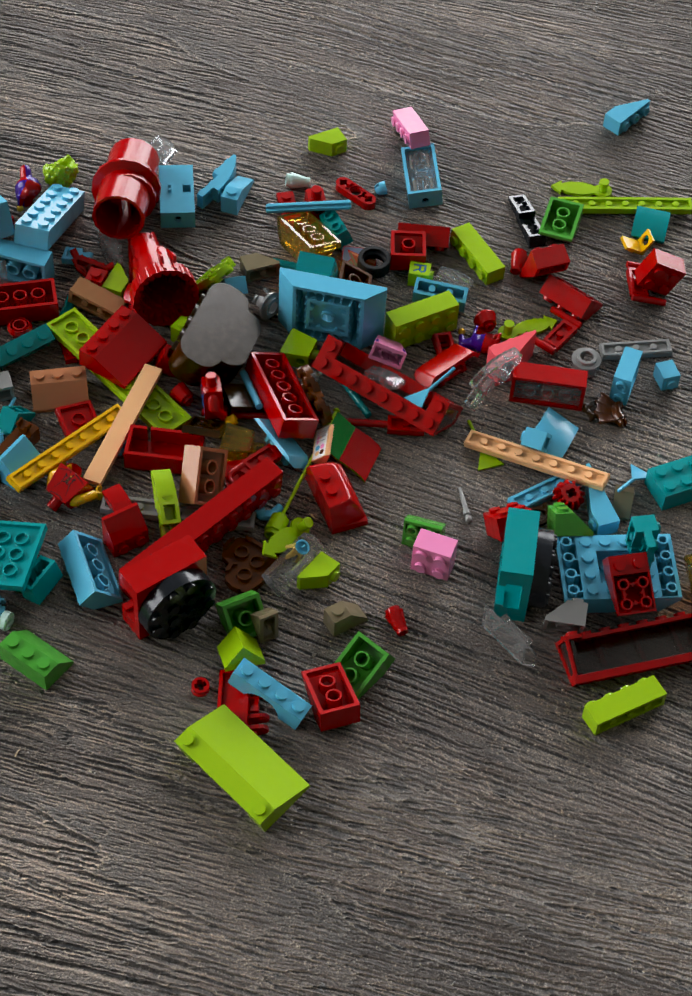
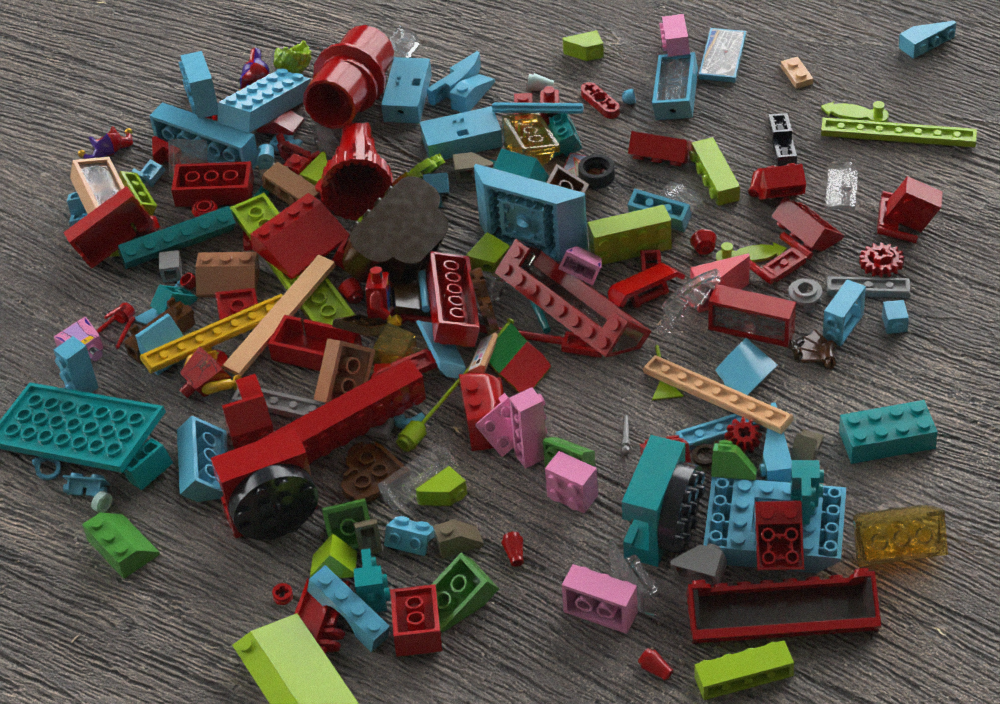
camera: 20 degrees right, 5 degrees down
(20, 398) = (188, 280): none -> red hinge
(66, 276) = (265, 158): none -> medium azure leg
(71, 238) = (286, 123): none -> slope
(165, 500) = (297, 391): lime slope -> none
(240, 235) = (461, 133): none -> medium azure brick
(267, 305) = (464, 204): light grey piece -> none
(284, 665) = (371, 583): none -> teal brick
(286, 536) = (415, 447): lime brick -> none
(300, 548) = (423, 459): piece -> none
(300, 619) = (408, 535): none -> medium azure bracket
(361, 508) = (497, 426): none -> bright pink bracket
(386, 377) = (573, 291): clear slope -> none
(388, 509) = (528, 426): none -> bright pink brick
(407, 247) = (636, 162): red slope -> none
(419, 269) = (645, 183): lime brick -> none
(420, 397) = (602, 316): medium azure piece -> none
(453, 143) = (722, 55): none -> tile
(479, 340) = (689, 259): piece -> none
(488, 657) = (599, 598): none -> bright pink brick
(522, 155) = (796, 72): none -> light nougat plate
(535, 439) = (720, 371): medium azure brick -> none
(547, 709) = (655, 664): none -> red cone
(561, 219) = (818, 141): bright green slope -> none
(589, 258) = (842, 185): none -> clear piece
(636, 473) = (830, 420): medium azure piece -> none
(637, 246) = (897, 175): yellow bracket -> none
(642, 324) = (881, 260): none -> red gear
(650, 219) = (921, 154): teal slope -> none

